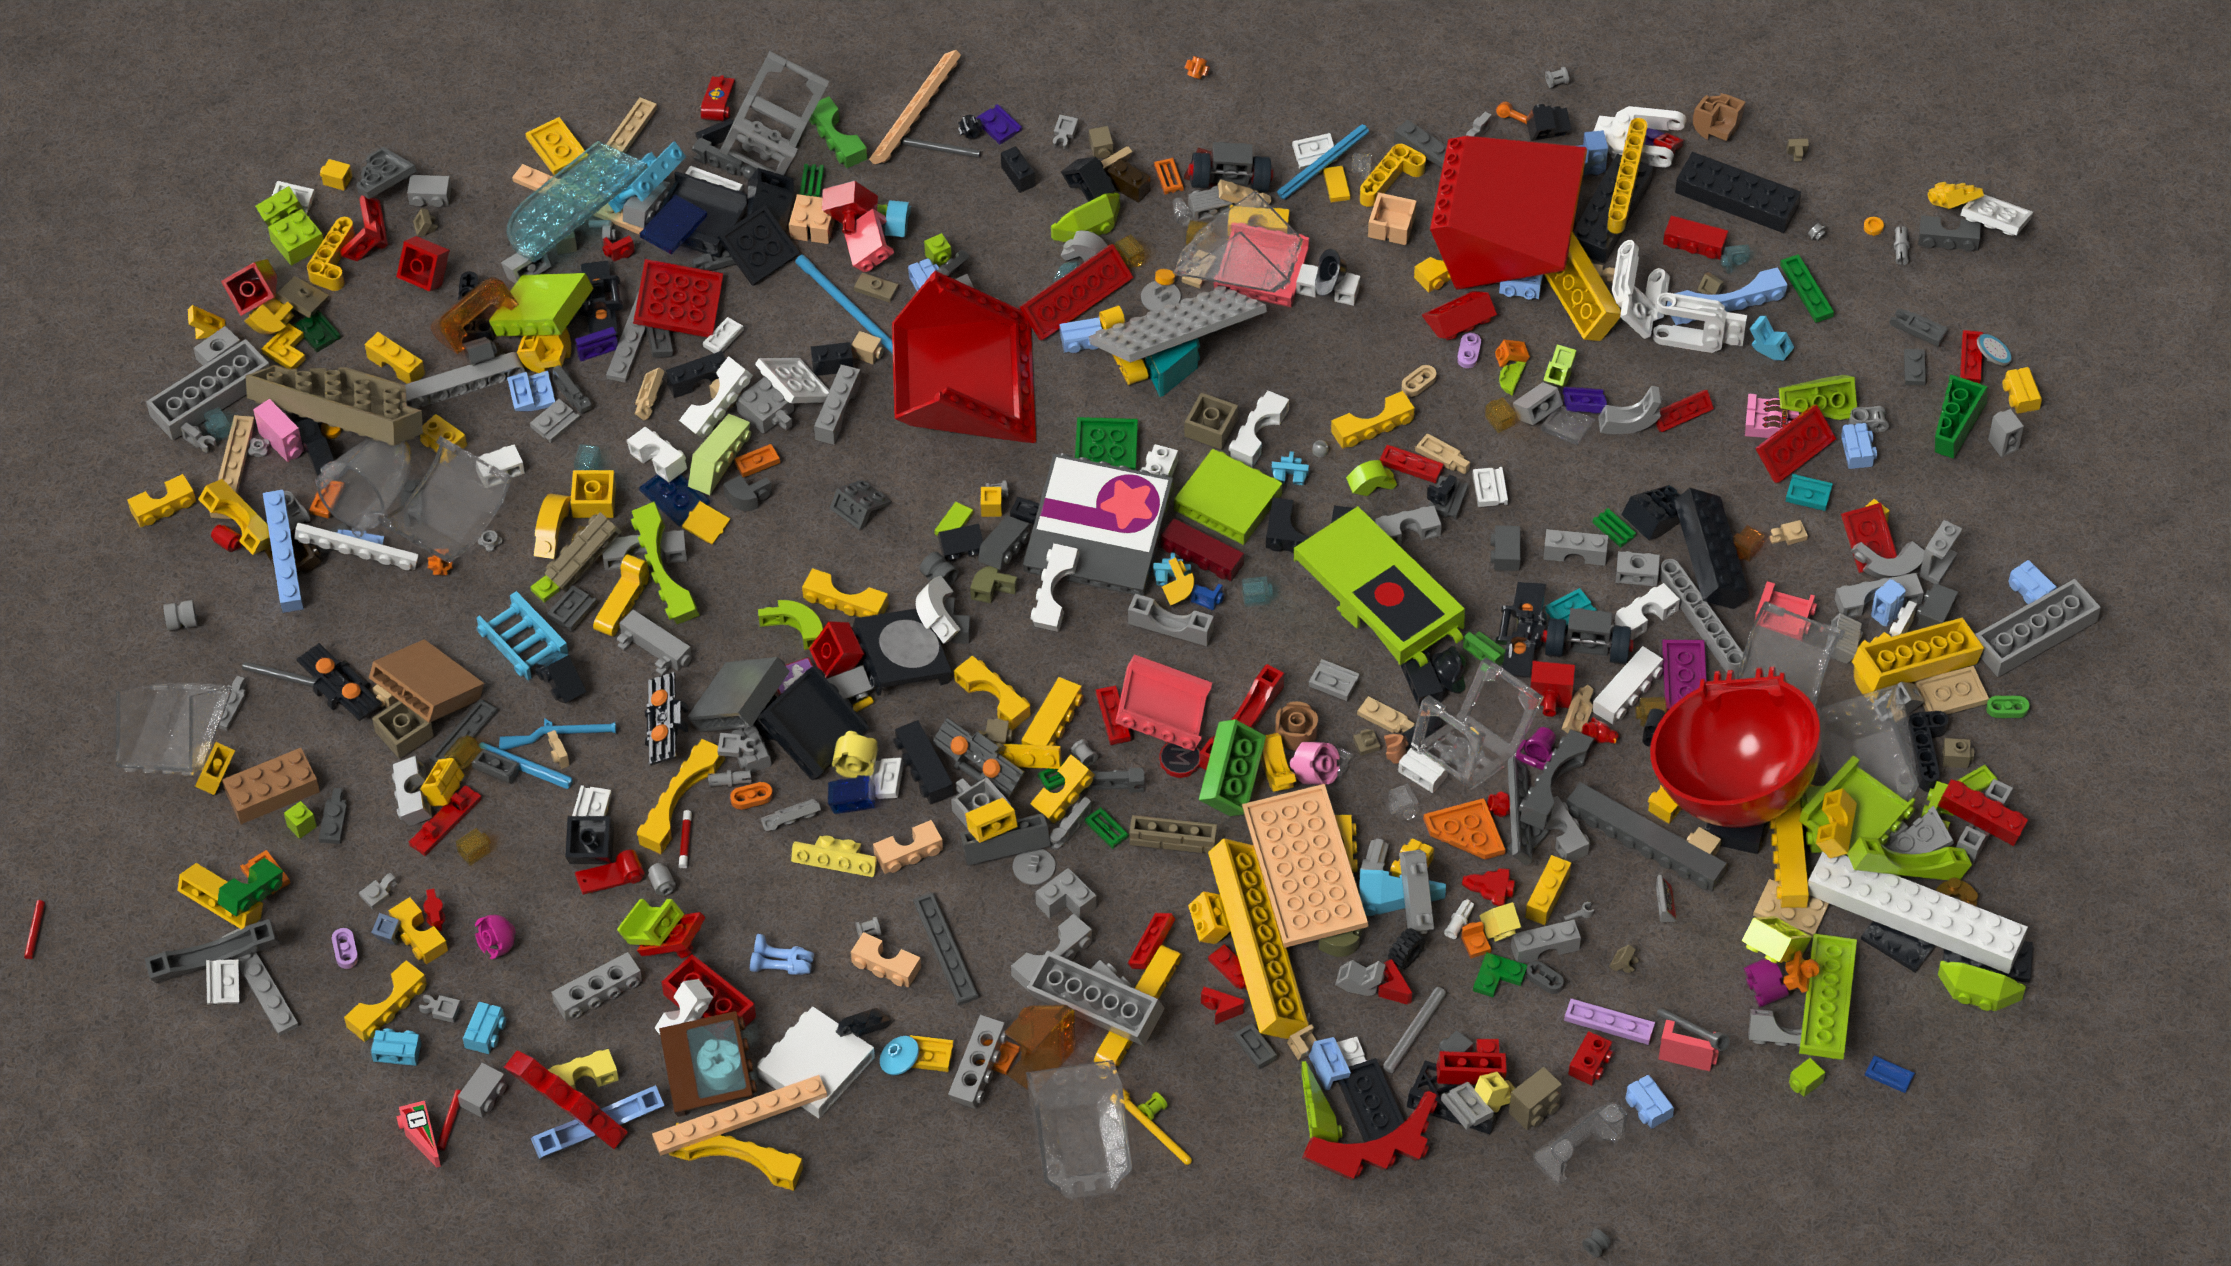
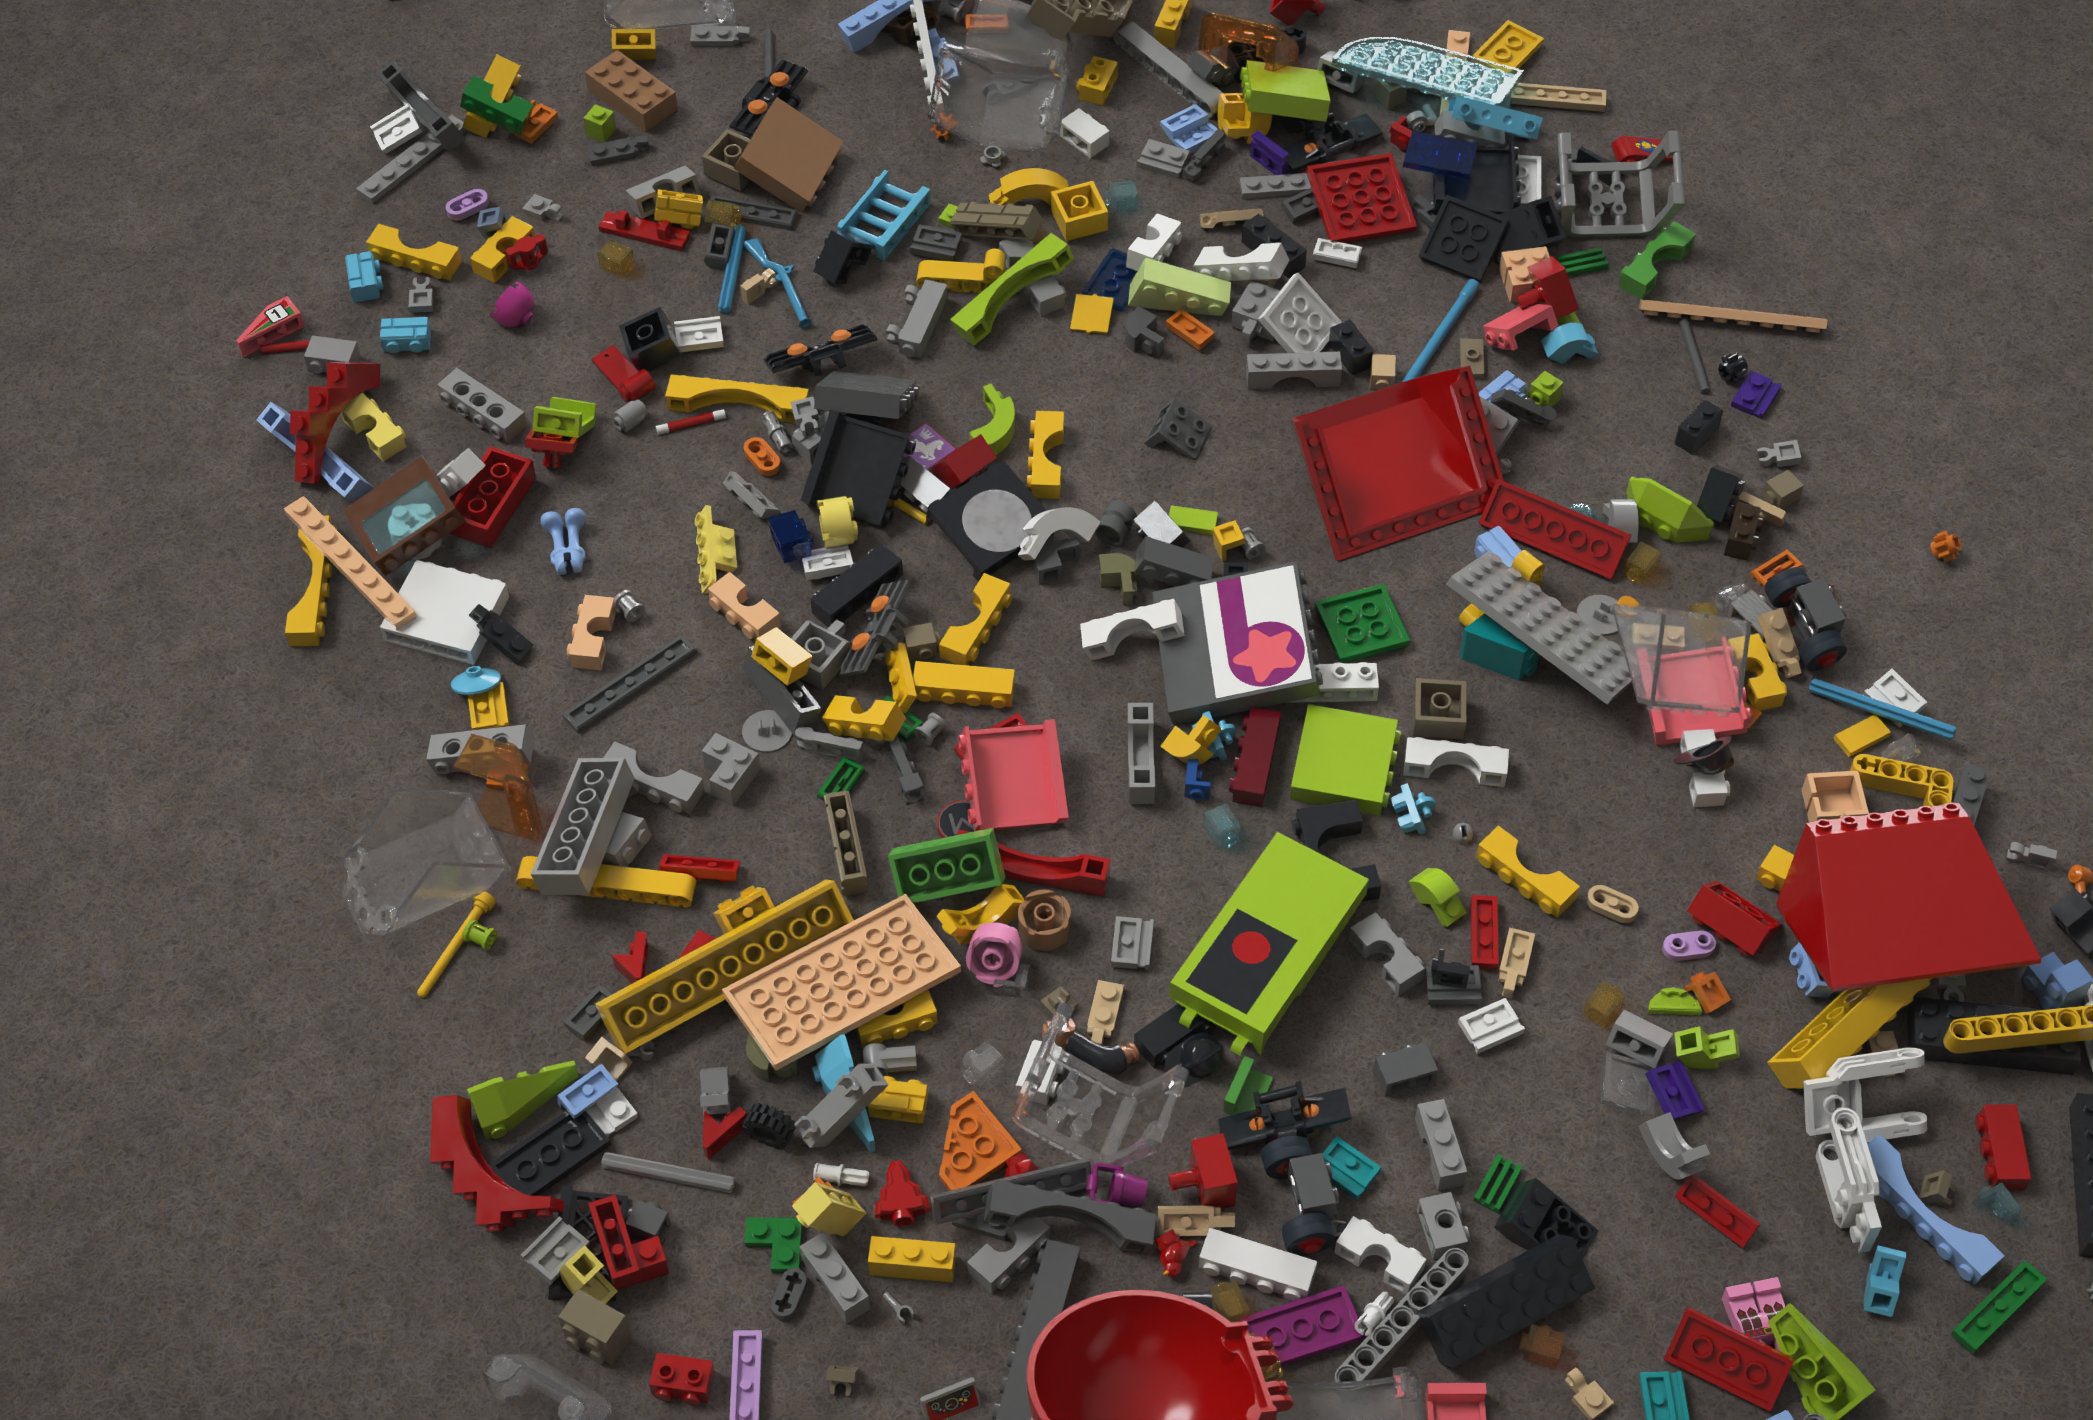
camera: 70 degrees right, 0 degrees up
(1690, 629) = (1374, 1313): none -> white axle

